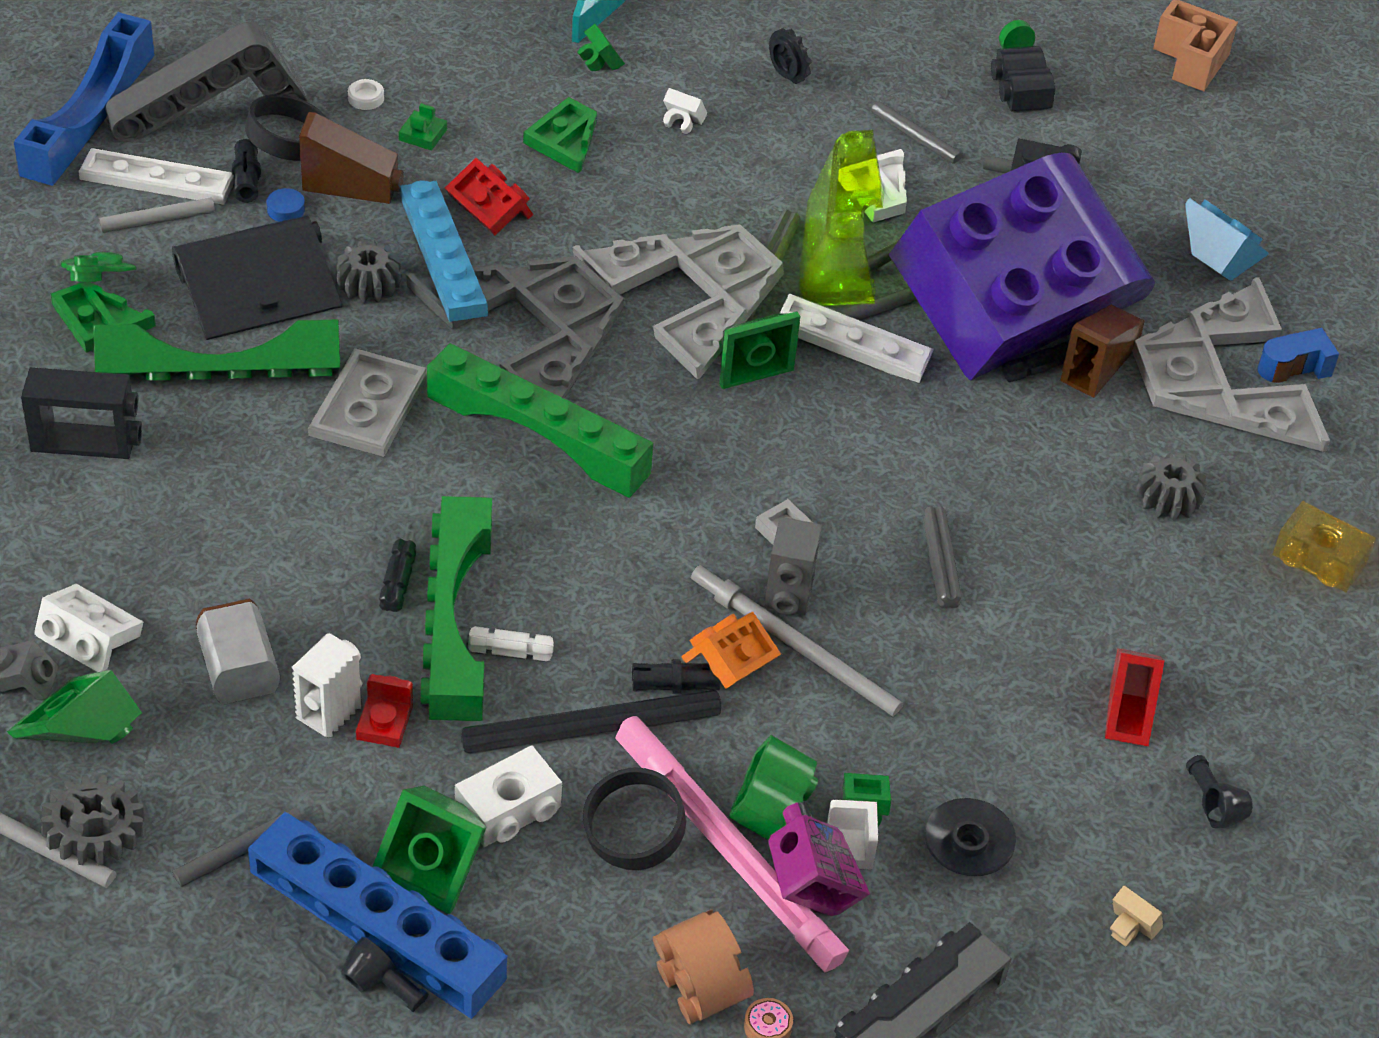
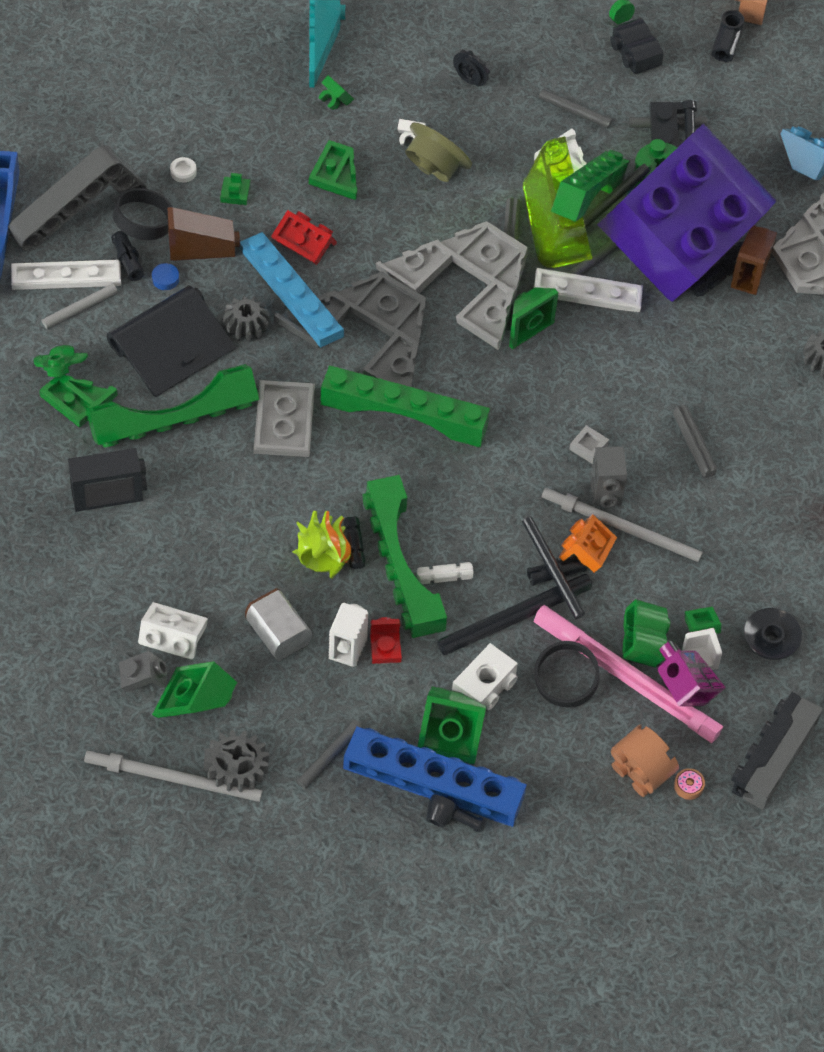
camera: 15 degrees left, 10 degrees up
(346, 563) = (323, 545): none -> lime hair
(667, 669) = (553, 567): none -> black bar
(701, 133) = (435, 153): none -> olive piece
(862, 192) = (583, 185): none -> green arch
(1152, 91) = (728, 36): none -> black piece

